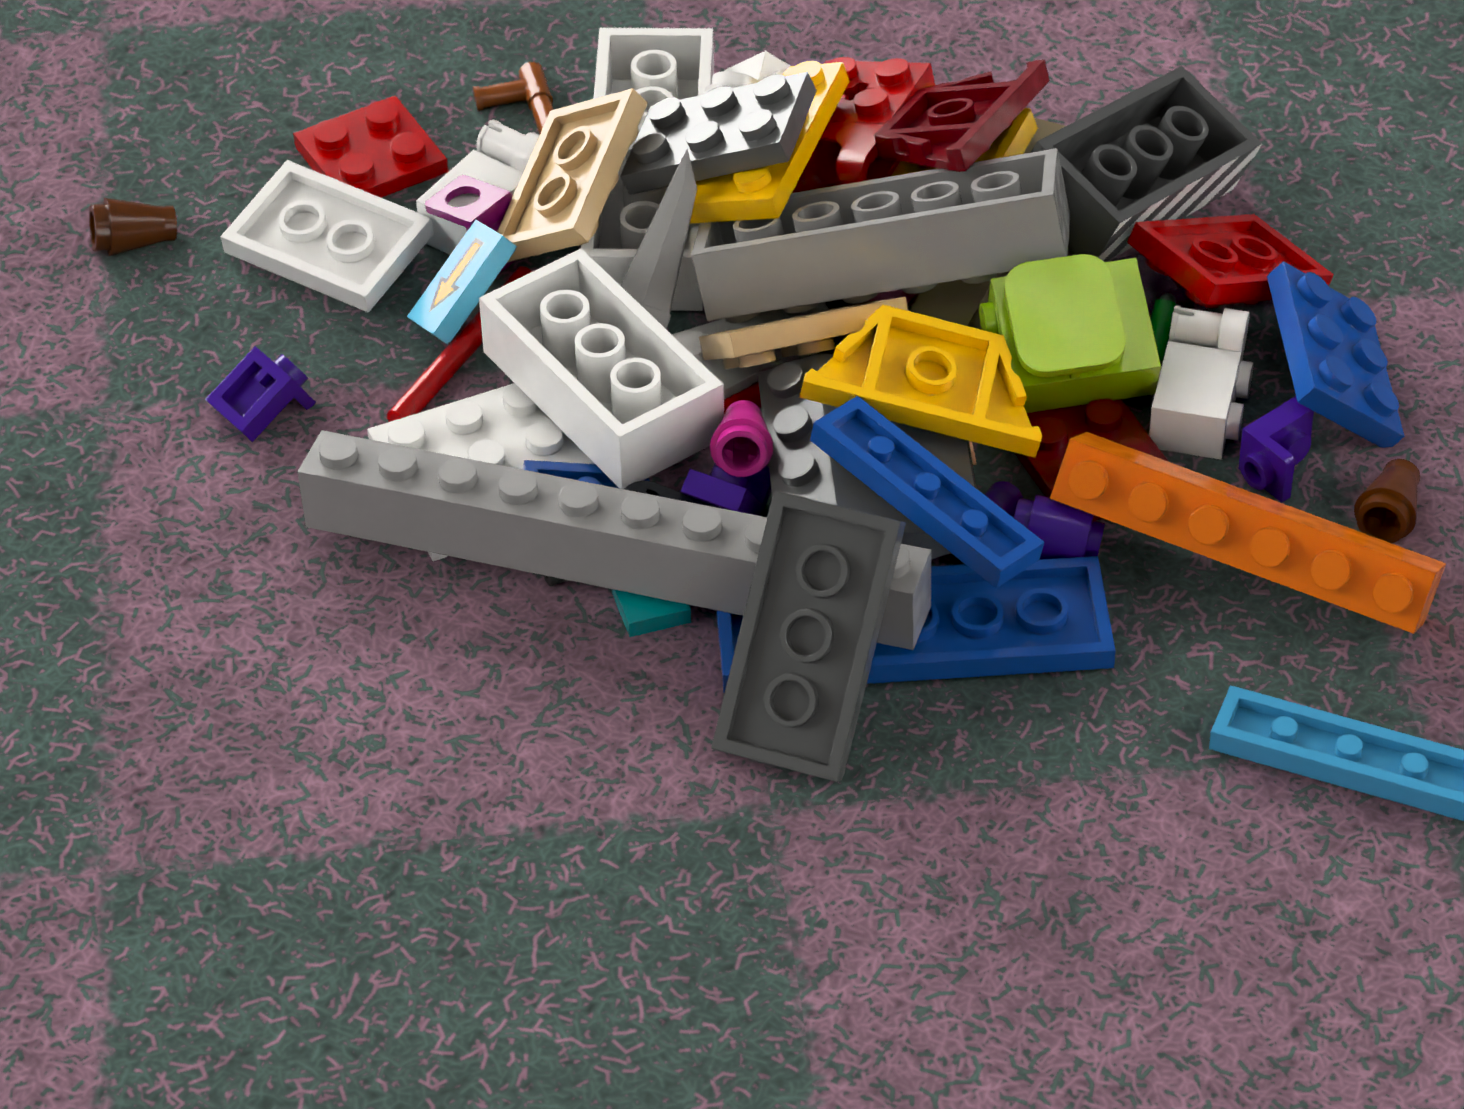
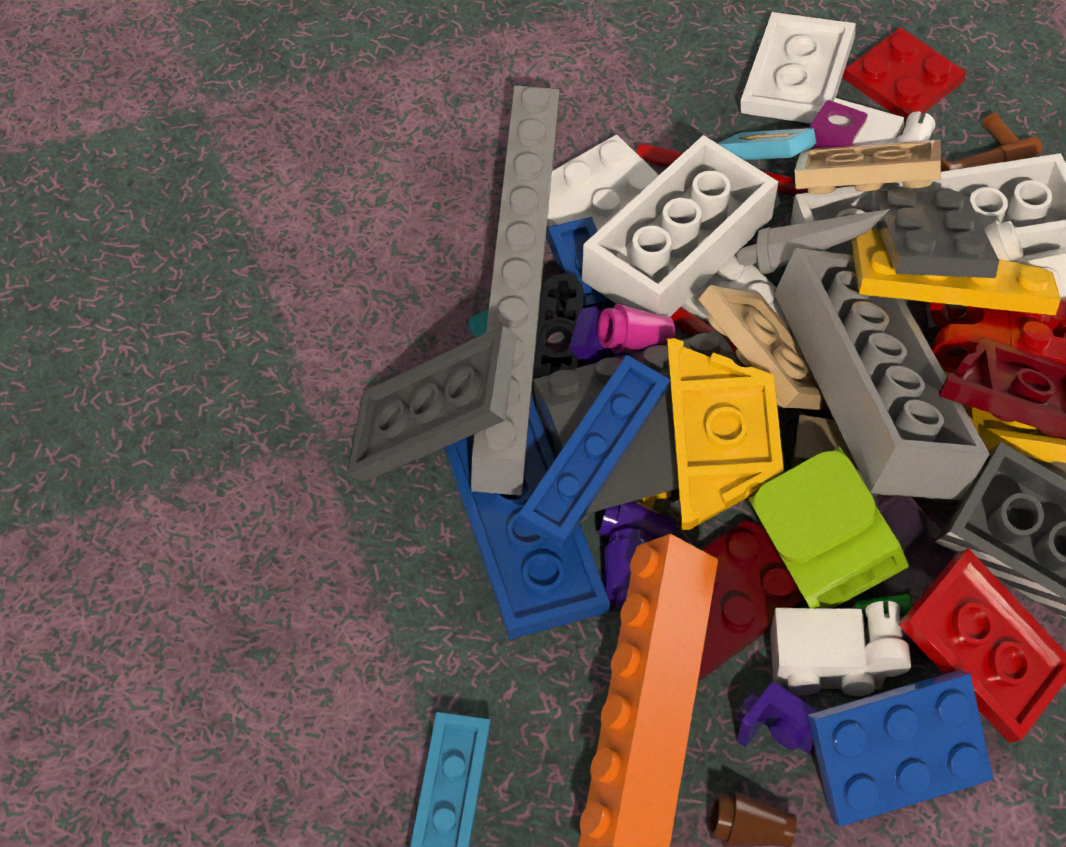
camera: 75 degrees right, 10 degrees up
(259, 392) = (632, 68): dark purple bracket -> none

